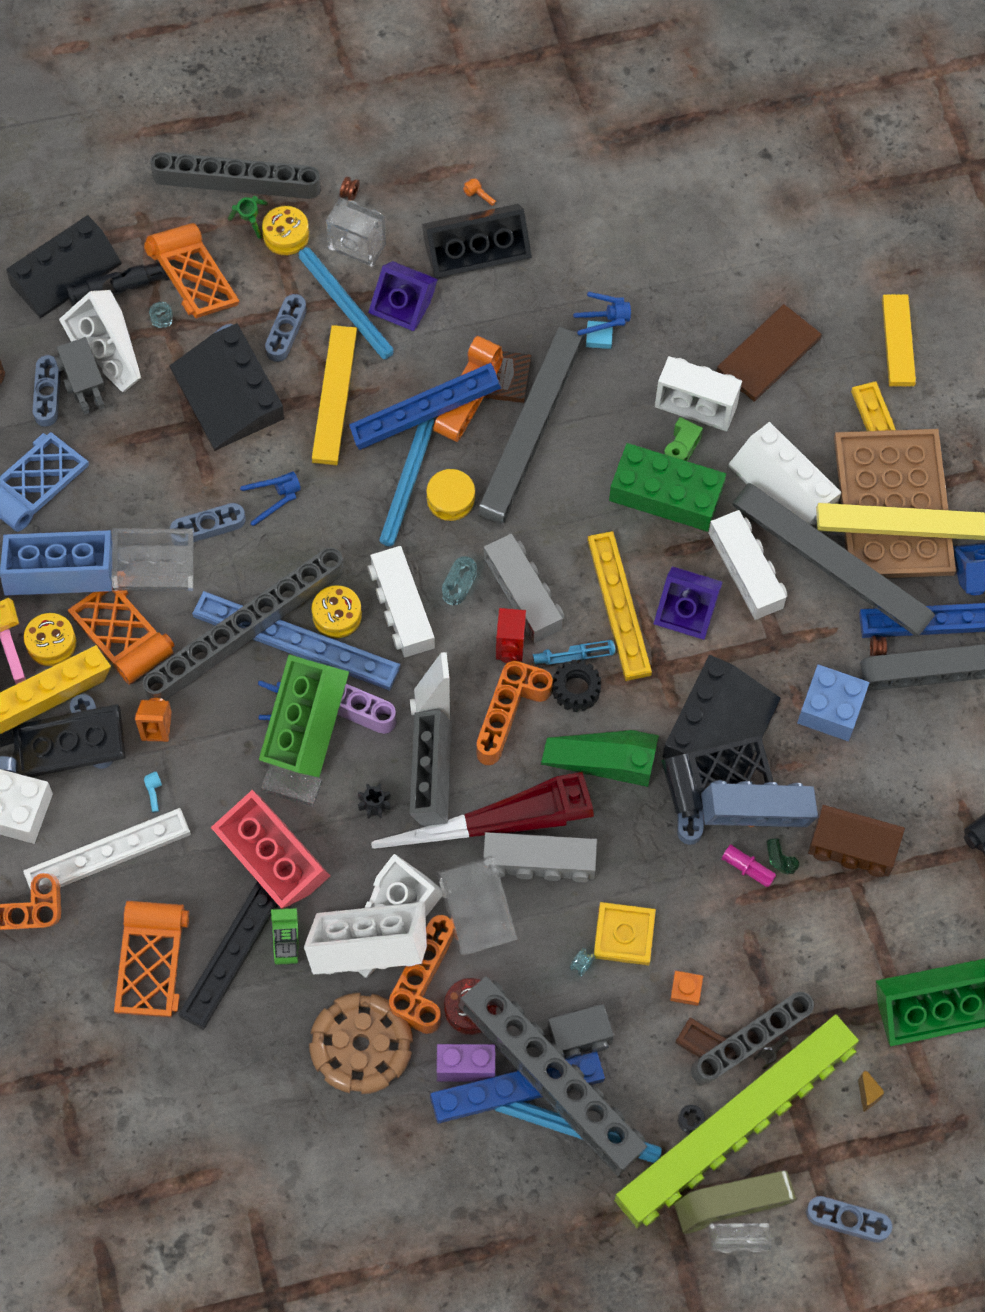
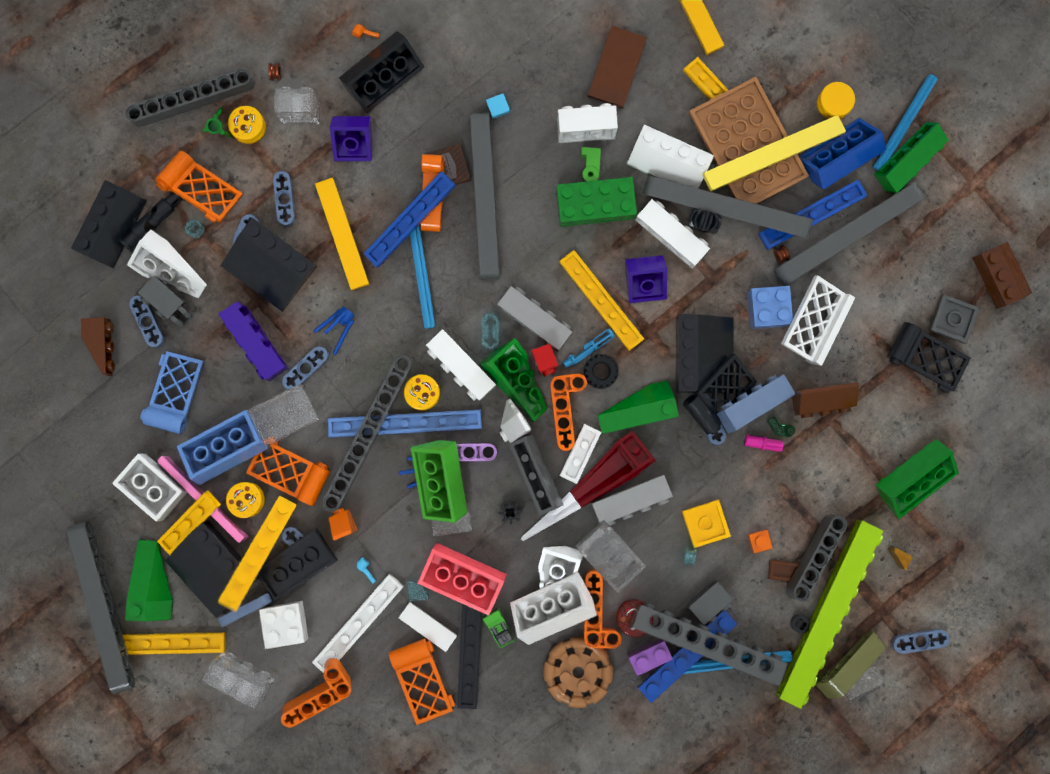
camera: 25 degrees left, 20 degrees up
(162, 461) = (253, 340): none -> dark purple wedge
(195, 896) = (428, 626): none -> white tile
(202, 846) = (416, 591): none -> clear light blue tile
(346, 303) = (315, 161): dark azure axle -> none
(450, 494) = (455, 273): yellow head -> none
(463, 633) = (512, 374): none -> green wedge
(500, 774) = (580, 453): none -> white tile
(618, 312) = (503, 84): blue plant -> none
(795, 564) = (705, 221): none -> black gear
(901, 760) = (827, 328): none -> white fence

